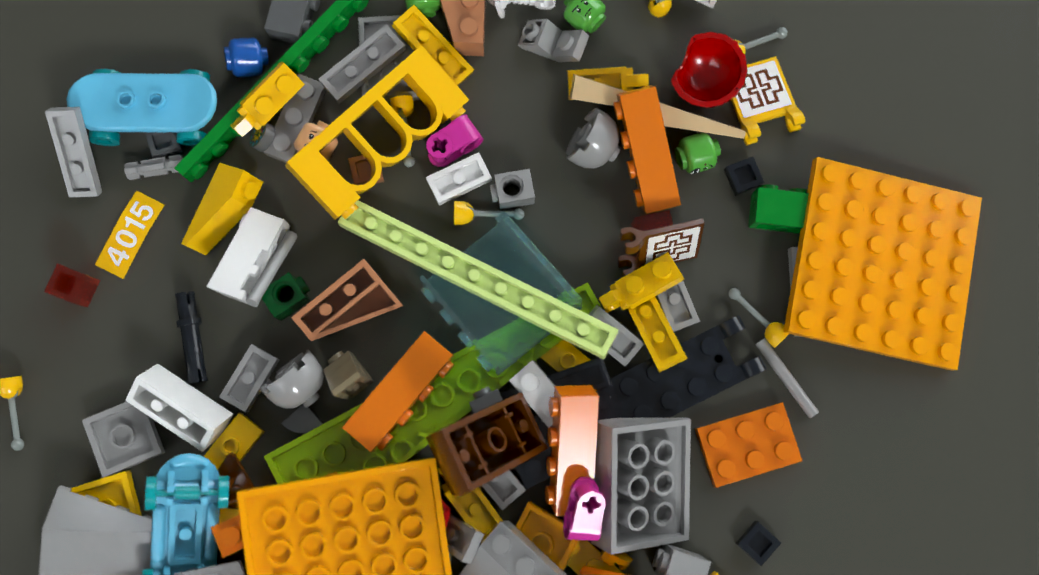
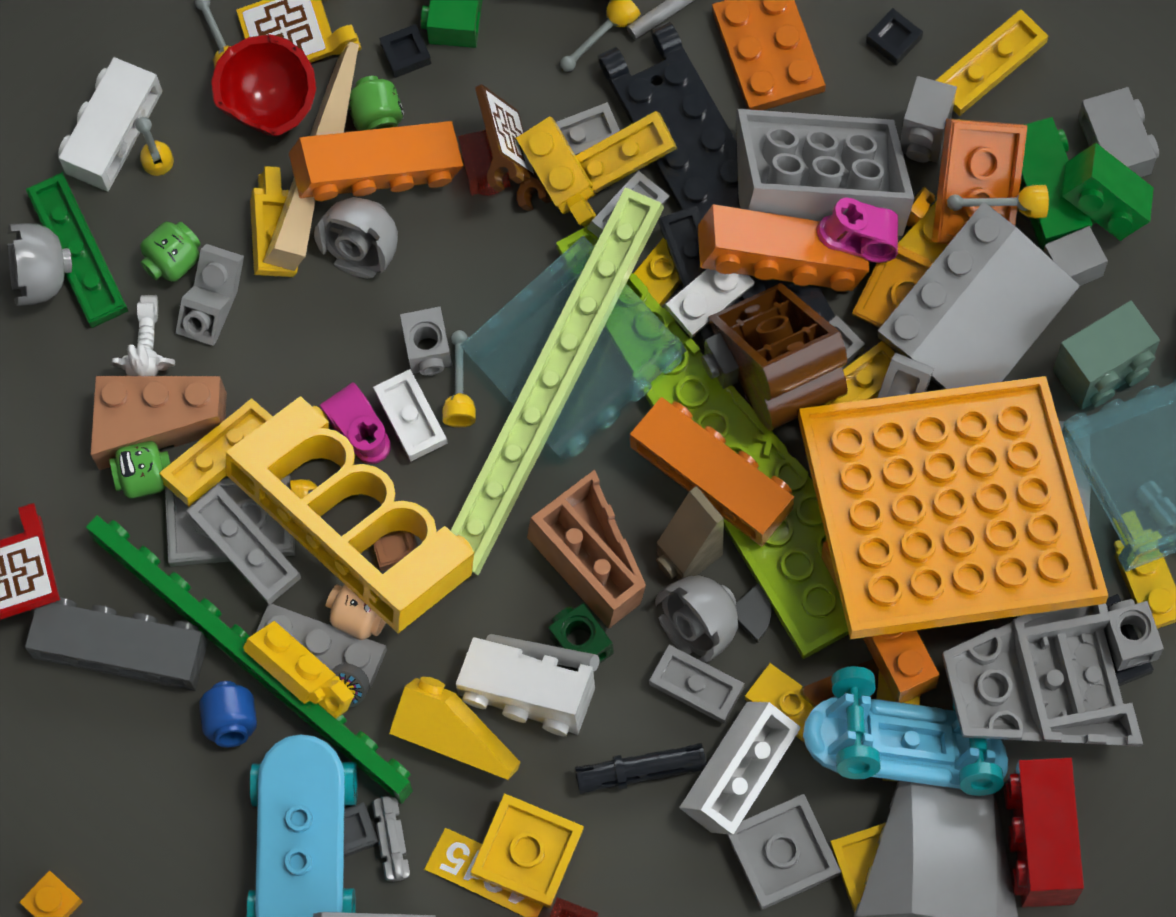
camera: 80 degrees left, 10 degrees down
(136, 258) = (527, 850): none -> yellow plate

